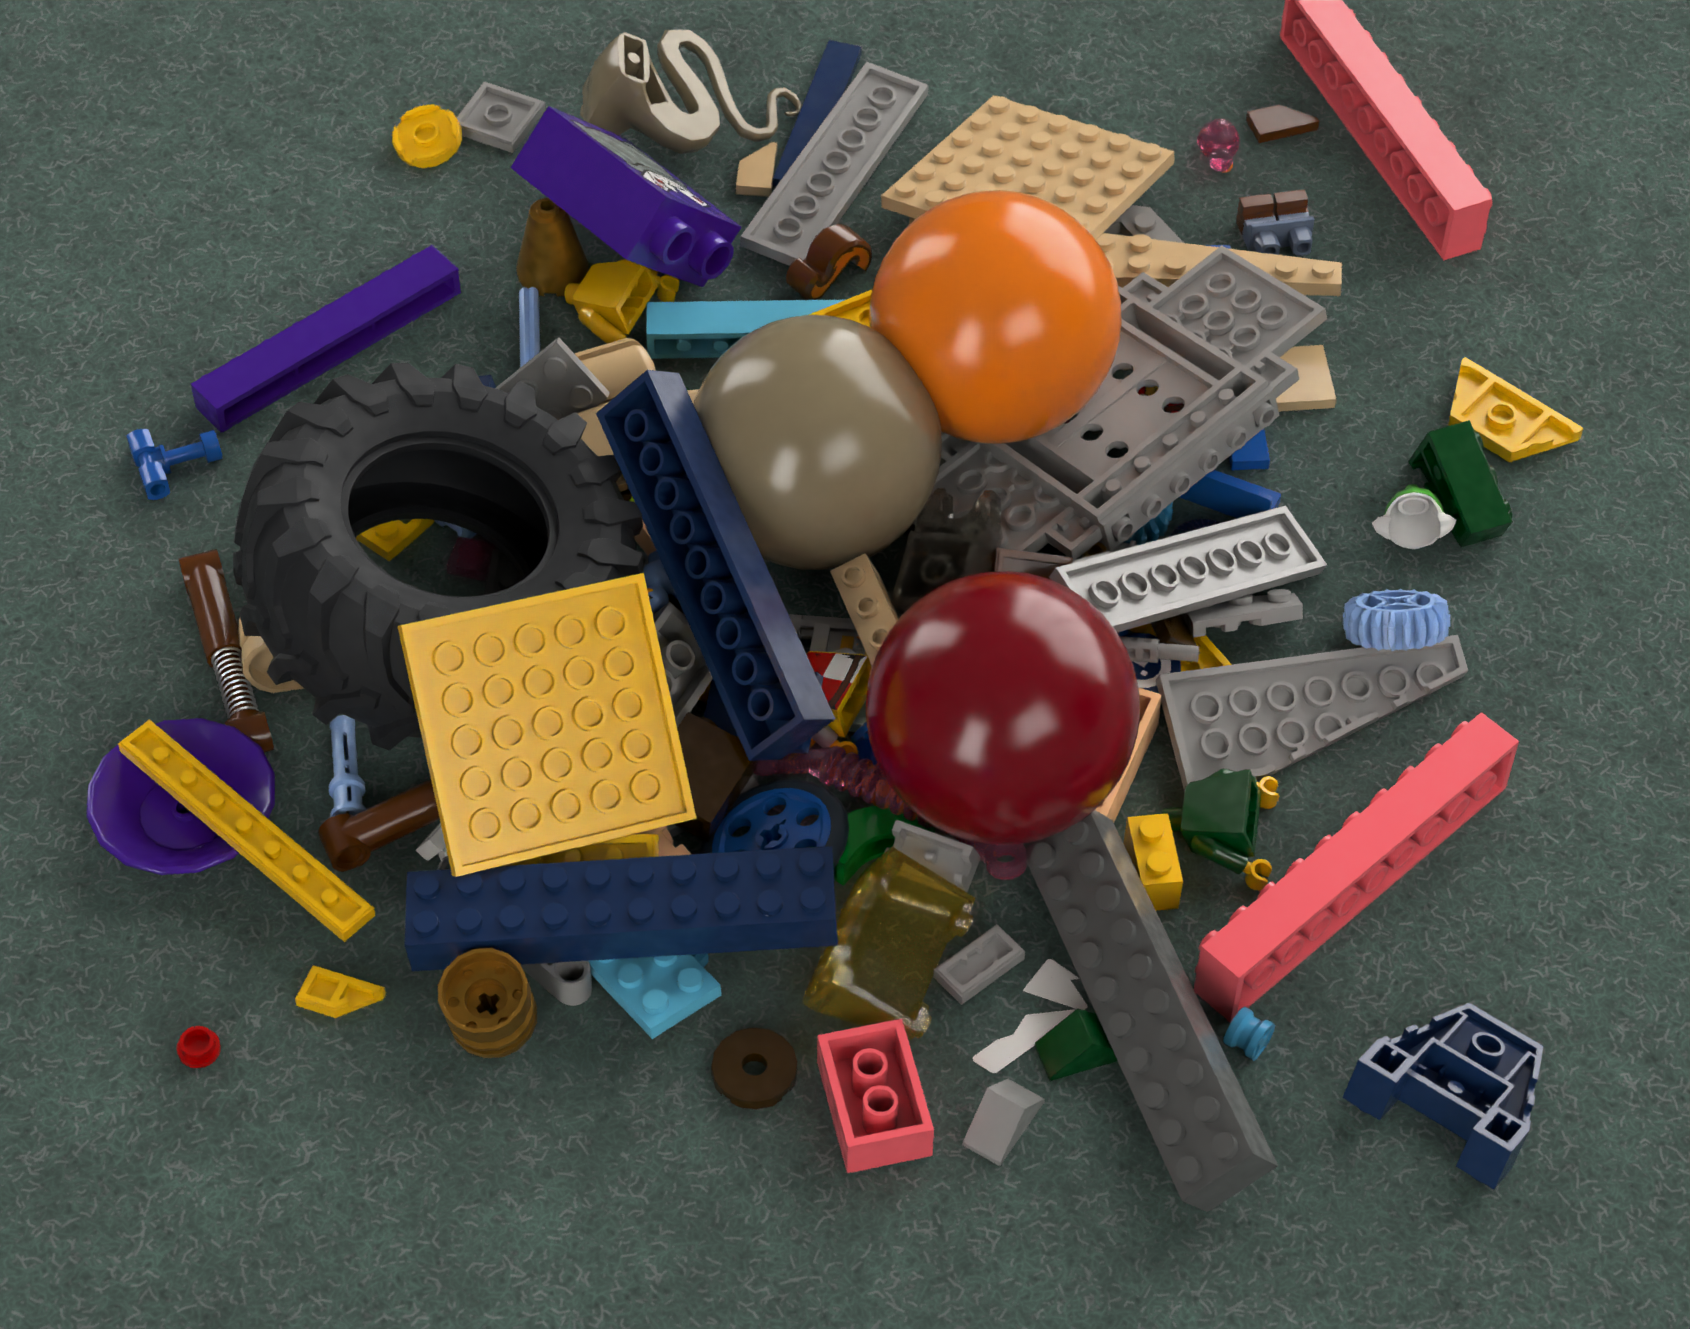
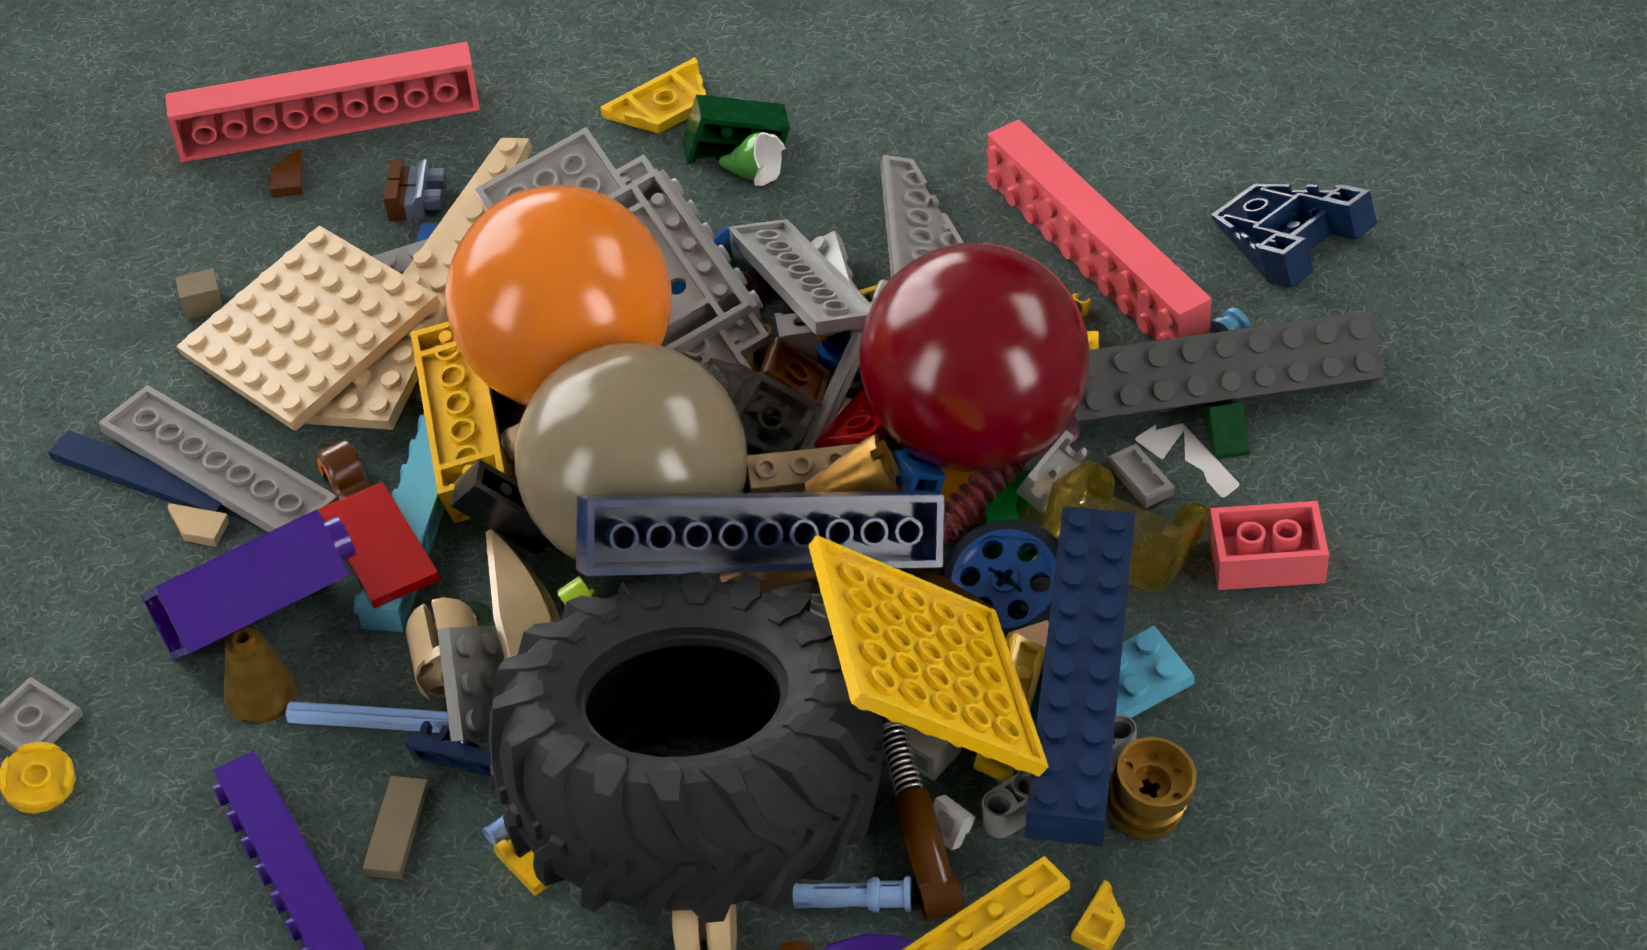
camera: 75 degrees left, 5 degrees down
(616, 295) = (335, 638): yellow torso -> none
(629, 94) = (88, 565): dark tan hips -> none
(724, 298) = (388, 553): none -> red tile
(749, 1046) = (1224, 614): dark brown tile -> none
(843, 660) = (863, 468): none -> pearl gold cone
(1001, 1120) = (1287, 478): light grey slope -> none
(1069, 92) = (199, 294): none -> dark tan panel
(1219, 143) = (302, 211): clear pink animal -> none
(1396, 619) = (867, 178): light blue gear -> none

